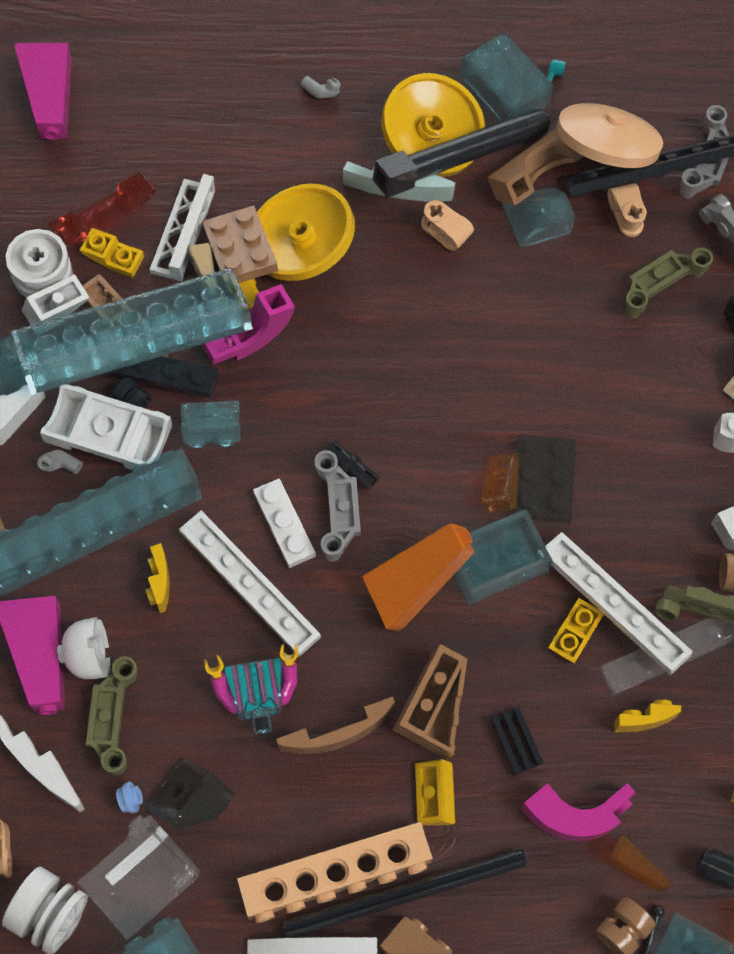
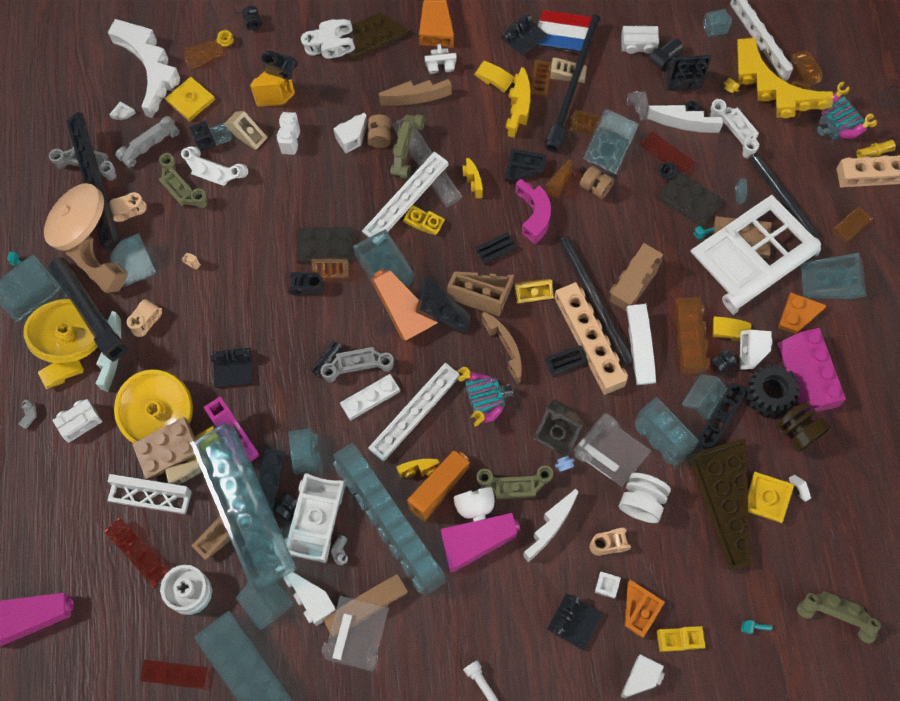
camera: 90 degrees left, 0 degrees up
(55, 301) = (218, 572): white slope -> none
(110, 253) = (172, 542): yellow slope -> none
(124, 601) = (438, 485): none -> orange slope
(297, 801) = (548, 360): none -> black tile
(301, 143) = (77, 420): none -> white brick
(356, 338) = (232, 367): none -> black hinge
(370, 120) = (57, 373): none -> yellow slope
(408, 634) = (441, 308): none -> black wing
(477, 441) = (302, 284): none -> black piece
(531, 290) = (191, 260): none -> light nougat tile
(670, 808) = (524, 165): none -> black wing
(686, 320) = (211, 170): none -> white plate

